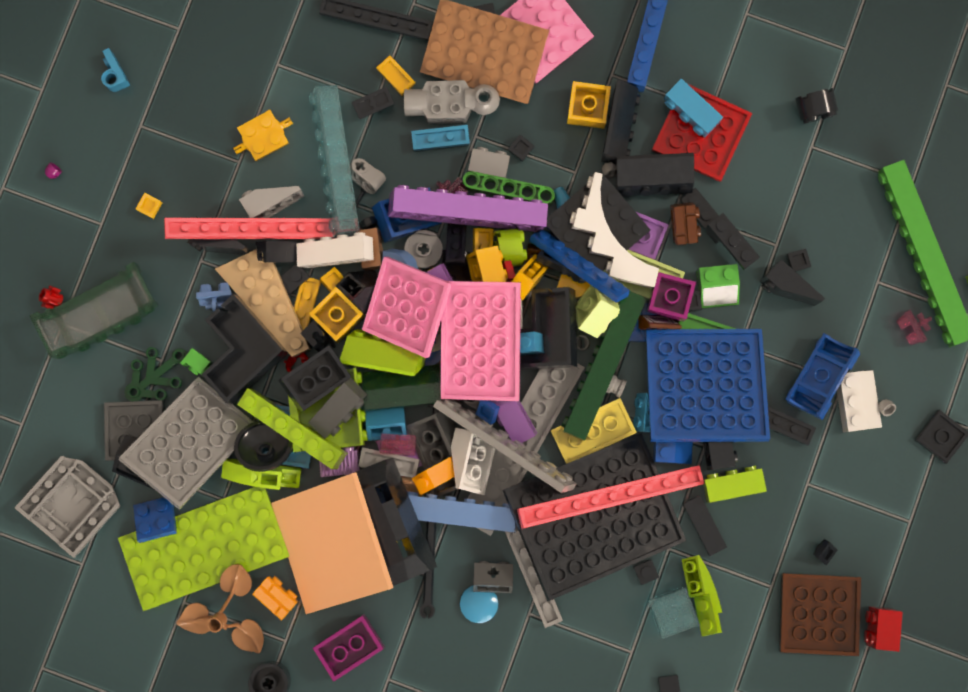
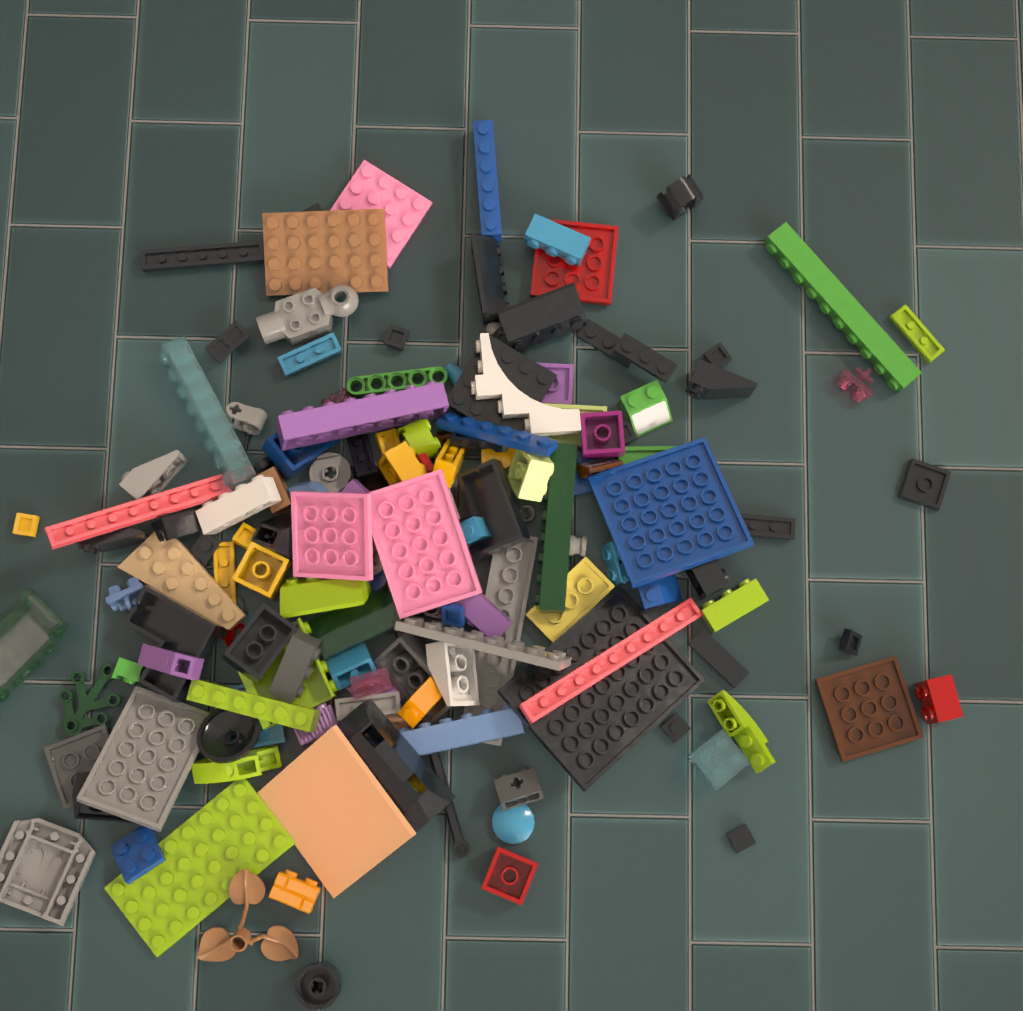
camera: 25 degrees left, 5 degrees down
(234, 368) = (170, 662): none -> medium lavender slope
(263, 135) = (123, 413): yellow plate -> none
(317, 336) = (248, 599): black hinge -> none
(348, 647) = (391, 917): magenta brick -> none
(395, 75) = (242, 307): yellow tile -> none
(460, 647) = (509, 875): none -> red brick
(489, 162) = (368, 362): light grey brick -> none
(547, 609) = (585, 801): light grey plate -> none
(588, 105) = (450, 271): yellow brick -> none
(684, 223) = (589, 357): reddish brown brick -> none
(822, 376) = (783, 464): blue piece -> none
(858, 402) = (827, 477): white slope -> none
(887, 407) = (859, 474): light grey hinge -> none

